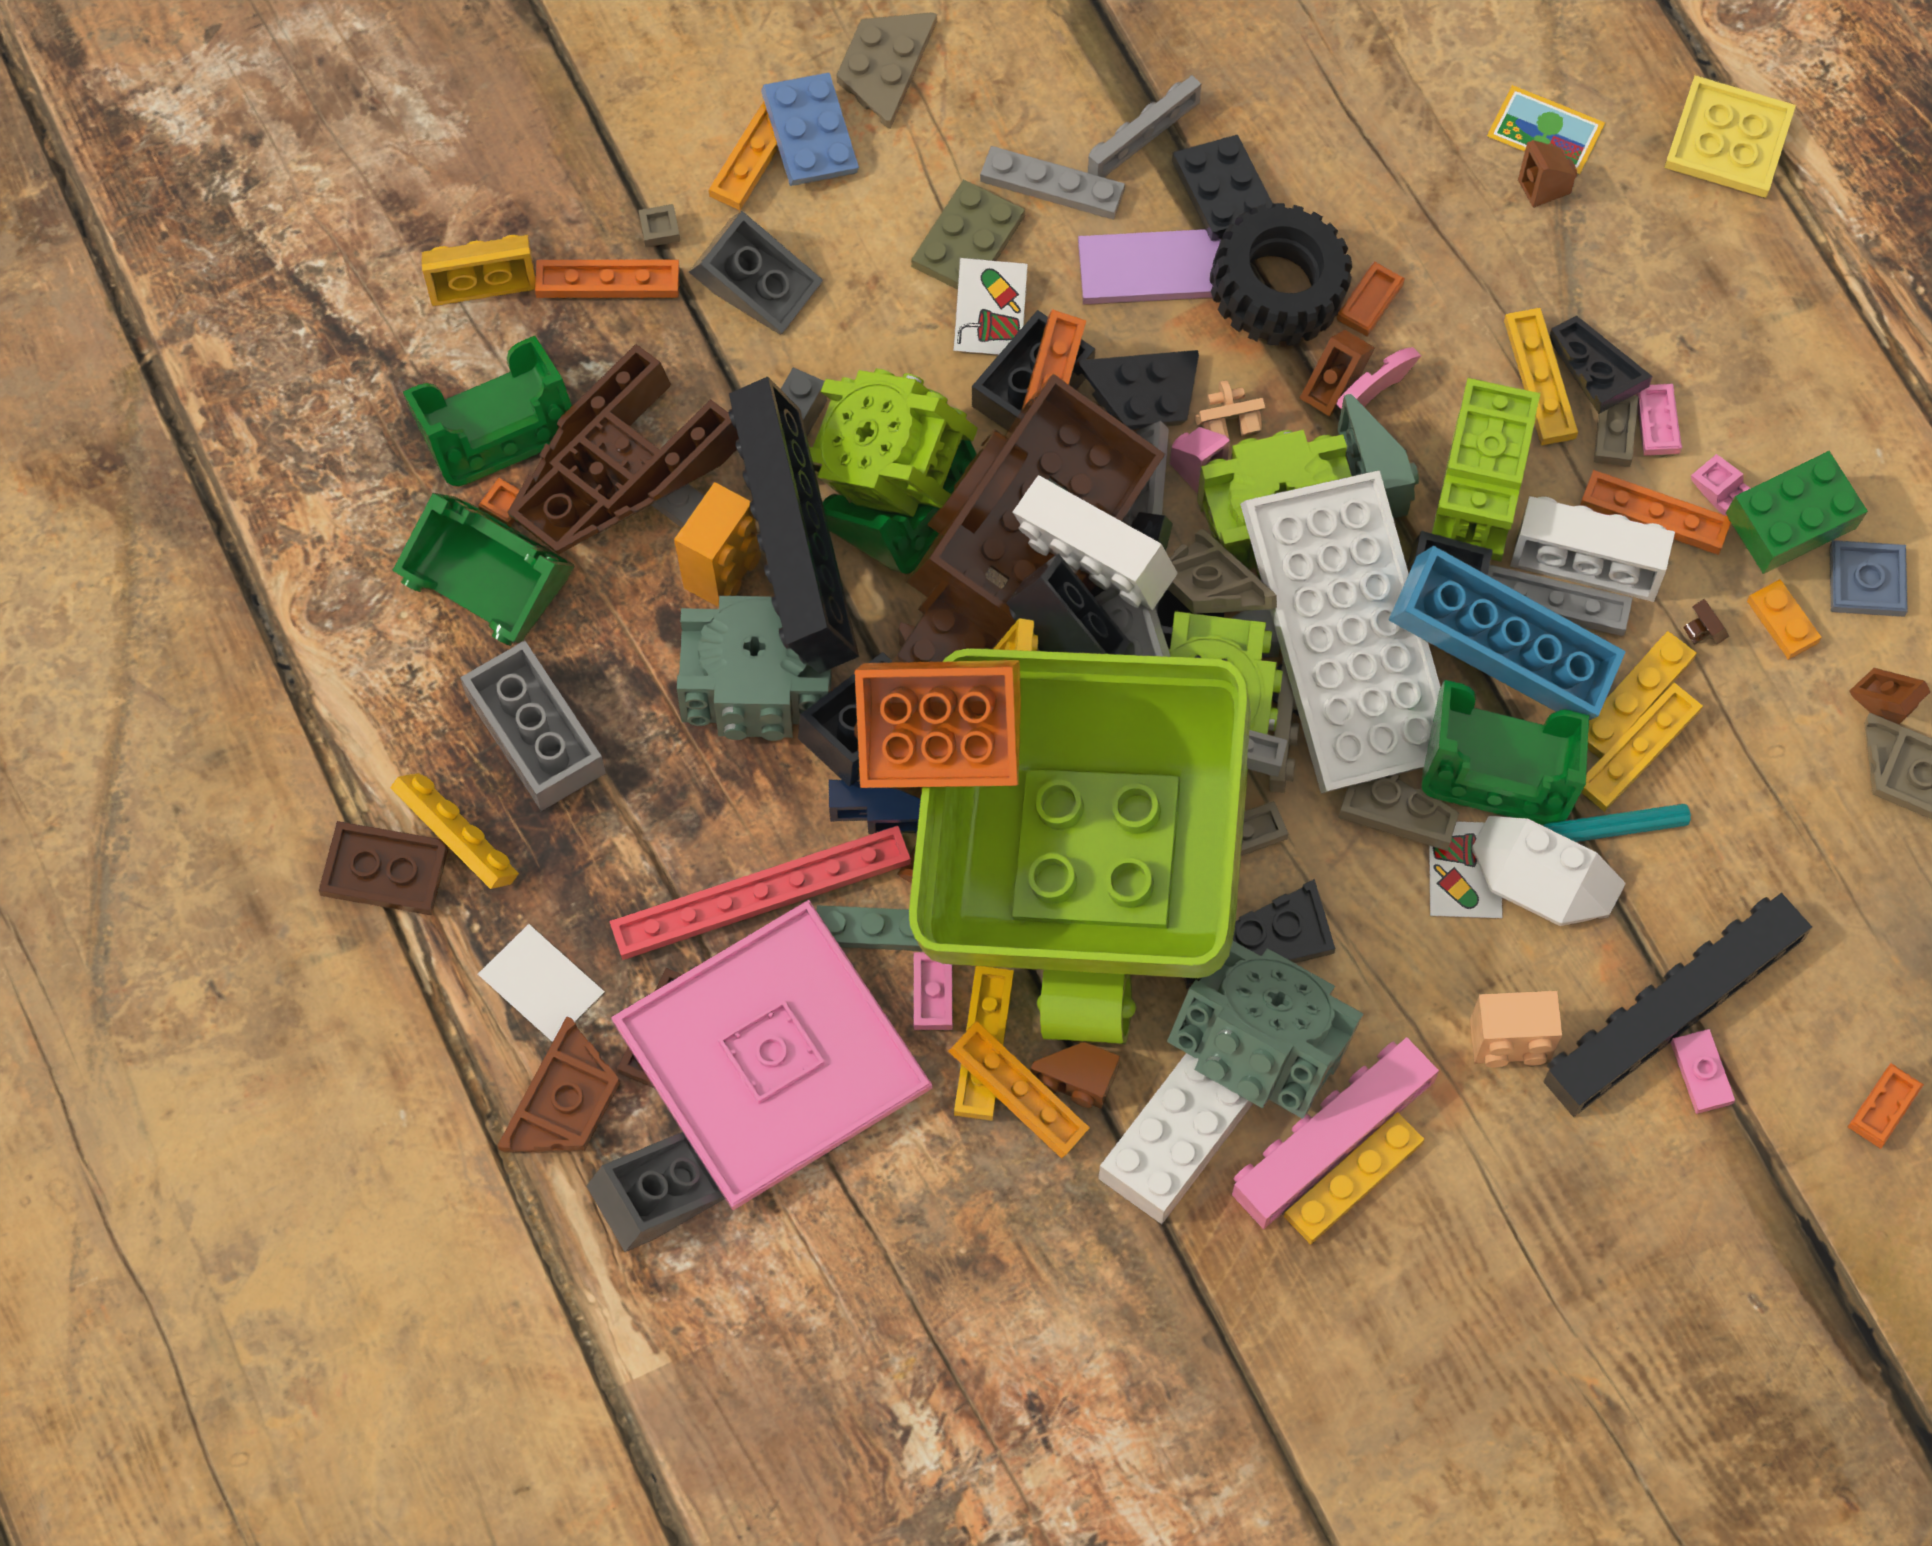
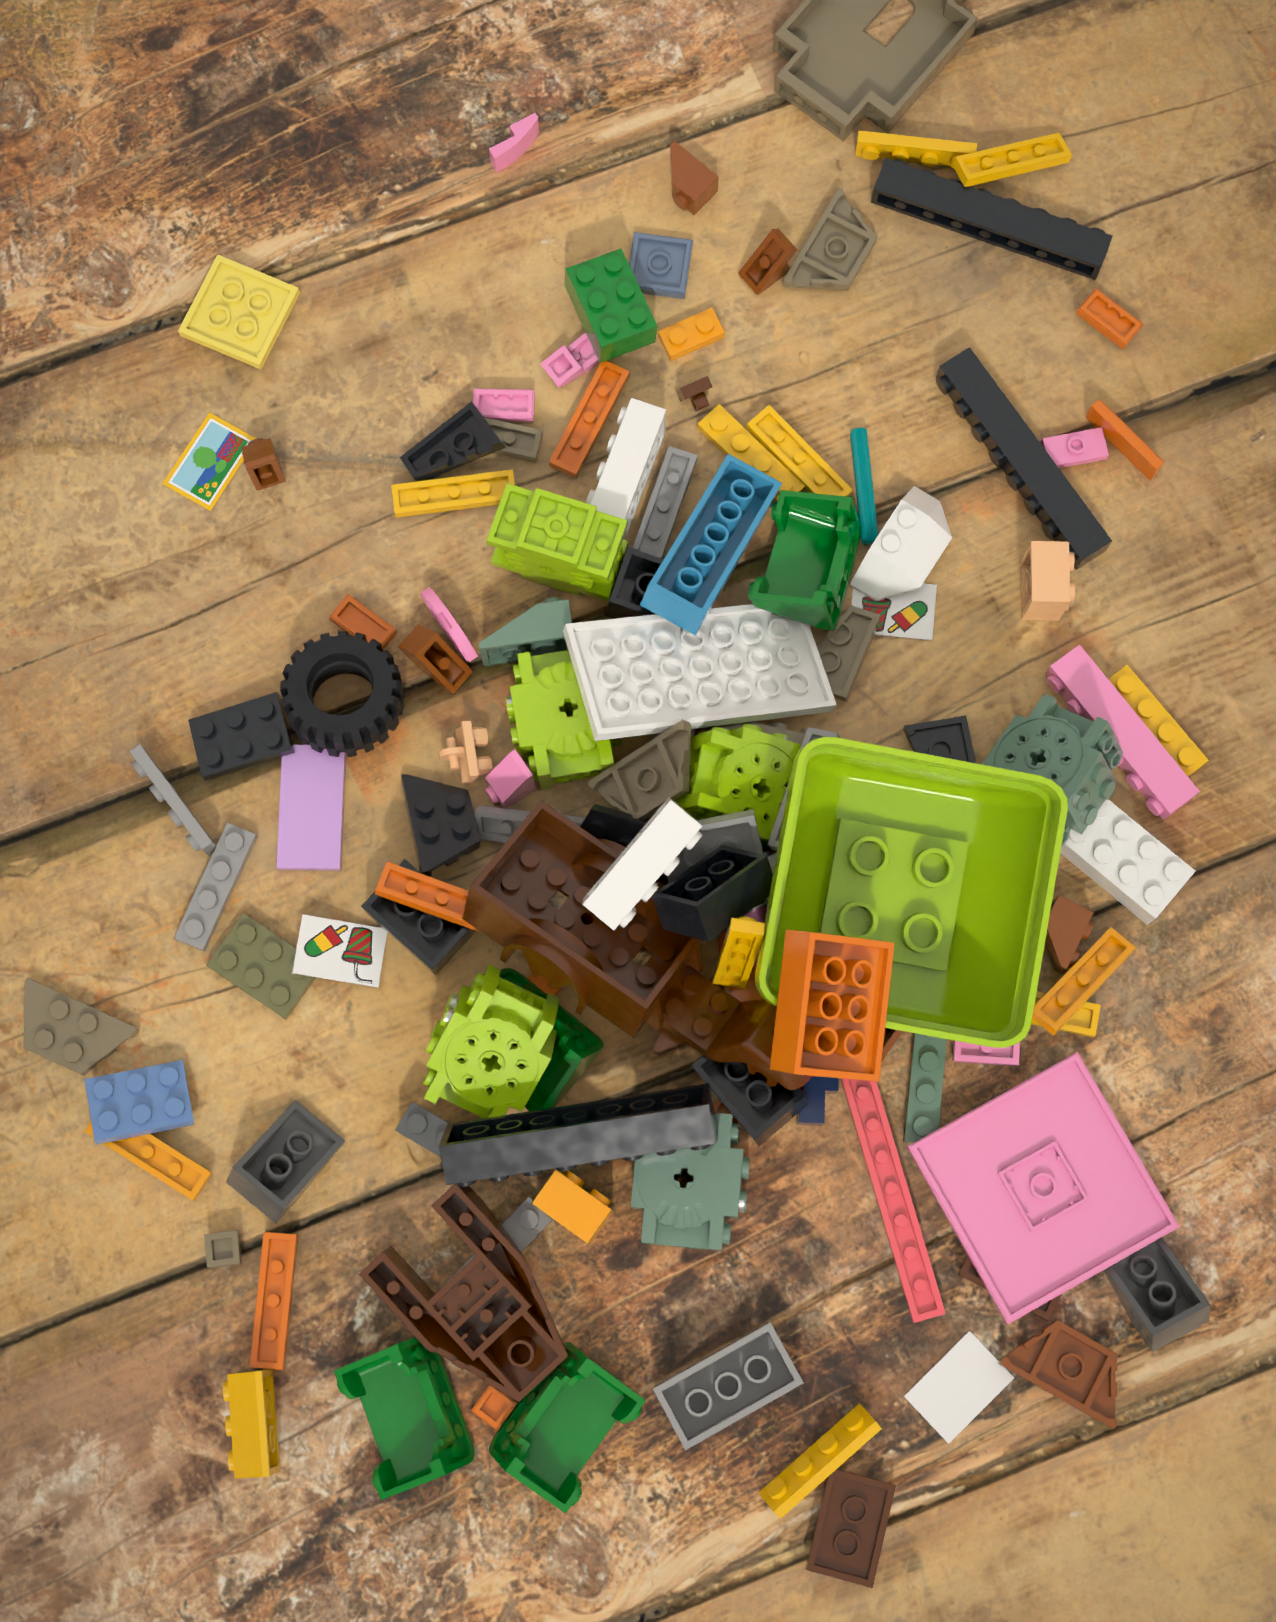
camera: 85 degrees left, 10 degrees up
(1721, 1126) = (1125, 439): none -> orange tile

